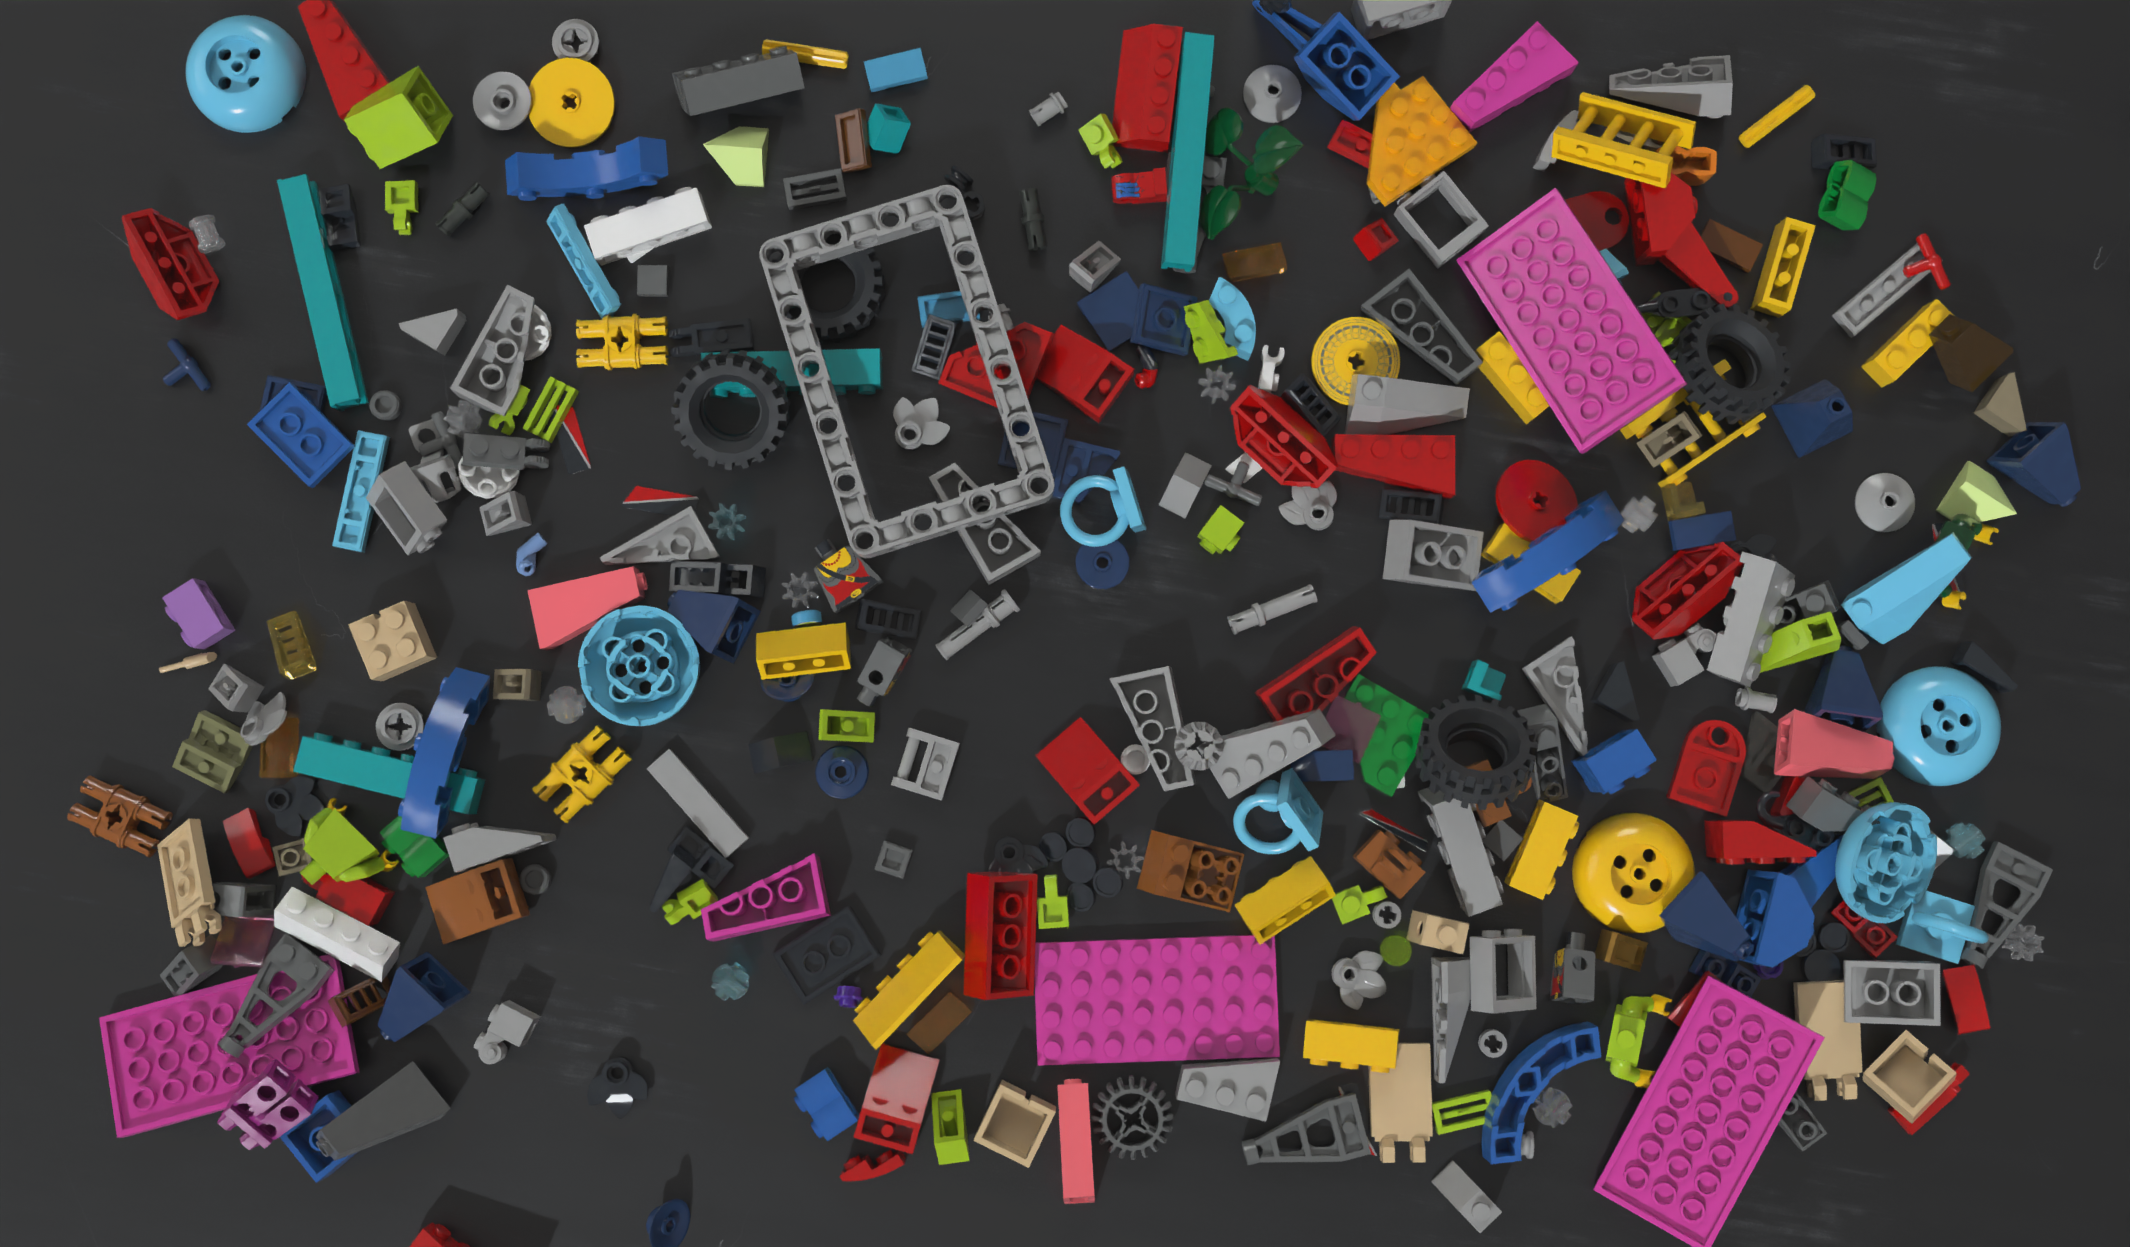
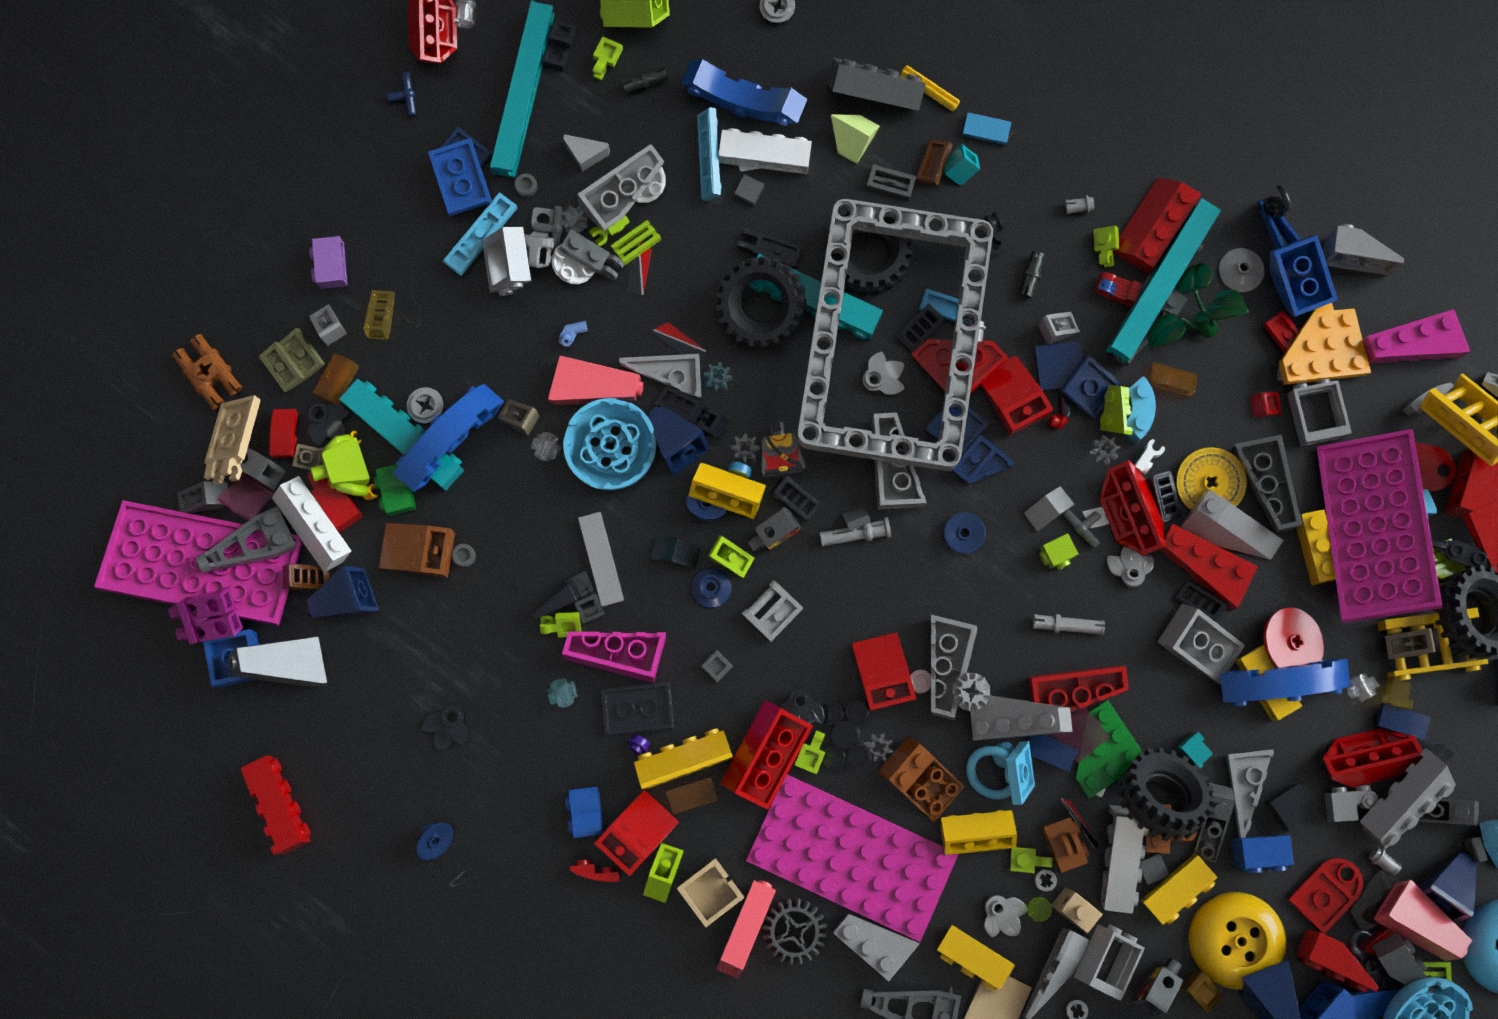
camera: 25 degrees right, 5 degrees down
(191, 662) = (307, 292): tan piece -> none
(263, 719) = (337, 355): light grey plate -> none
(392, 641) = (450, 345): tan piece -> none
(478, 846) = (440, 512): light grey slope -> none
(496, 89) = (705, 12): light grey dish -> none
(505, 513) = (569, 297): light grey slope -> none
(507, 1023) = (395, 644): light grey brick -> none
(566, 772) = (527, 511): yellow pin -> none
(594, 102) = (749, 61): yellow piece -> none
(631, 353) = (710, 231): yellow pin -> none
(1124, 503) = (1001, 495): medium azure tile -> none
(1802, 641) = (1438, 834): lime slope -> none

